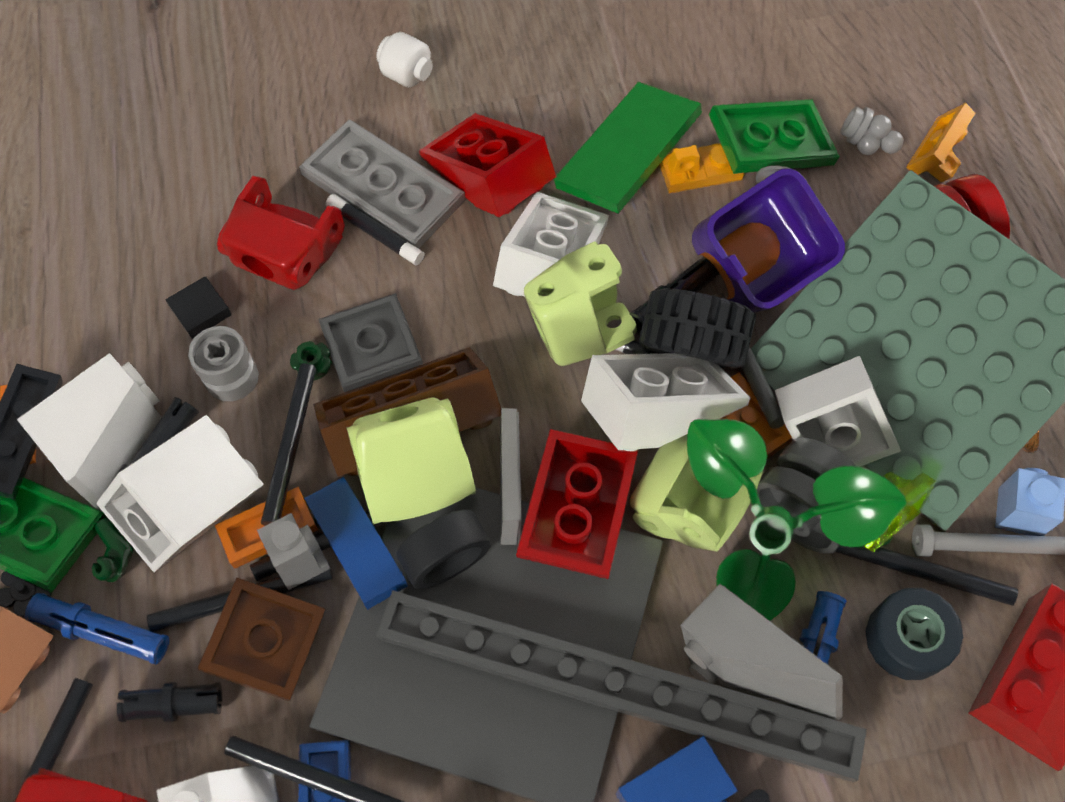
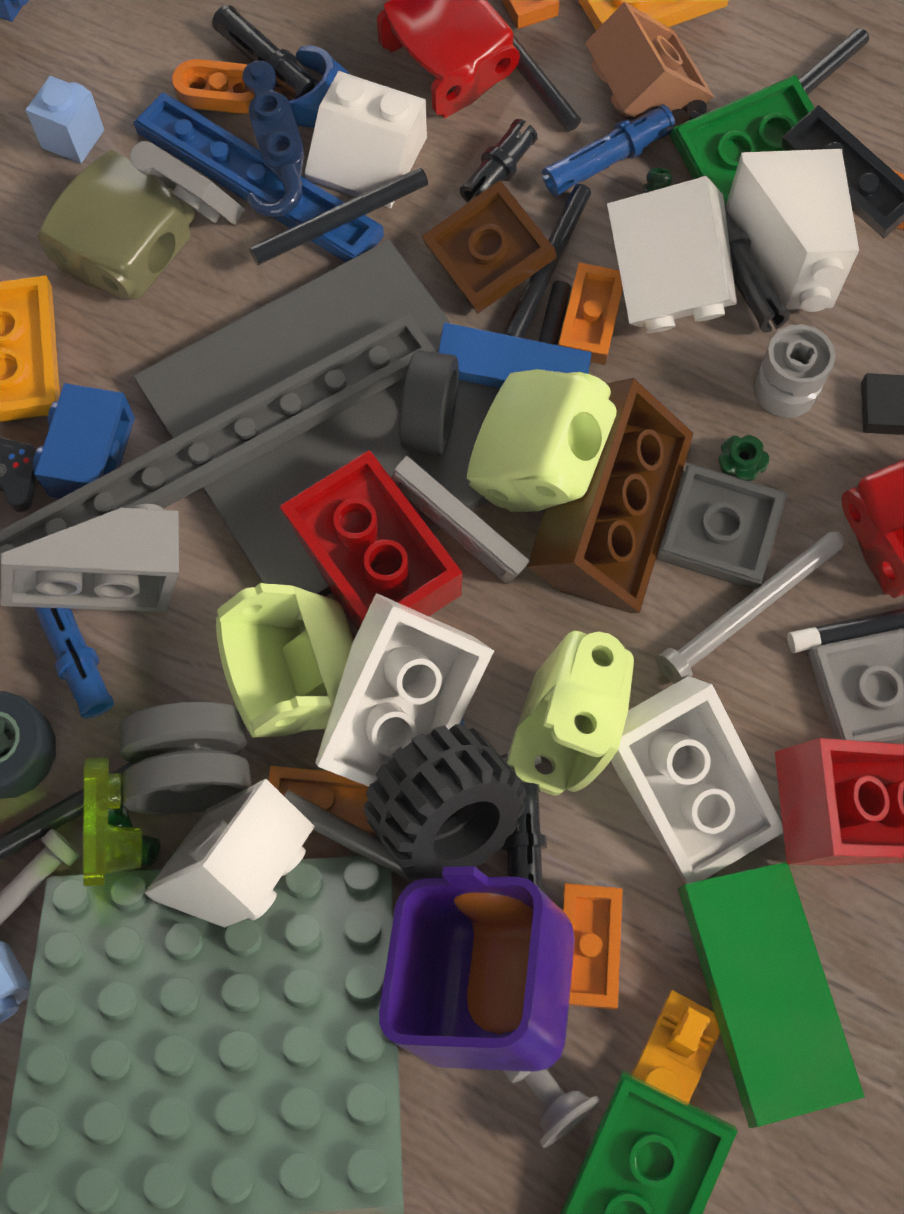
camera: 130 degrees right, 5 degrees up
(289, 444) = (657, 372): black bar -> none
(293, 551) = (542, 303): light grey brick -> none
(487, 300) = (678, 664): none -> light grey bar
(673, 239) = (597, 934): none -> orange plate
(852, 503) = (167, 646): green plant -> none

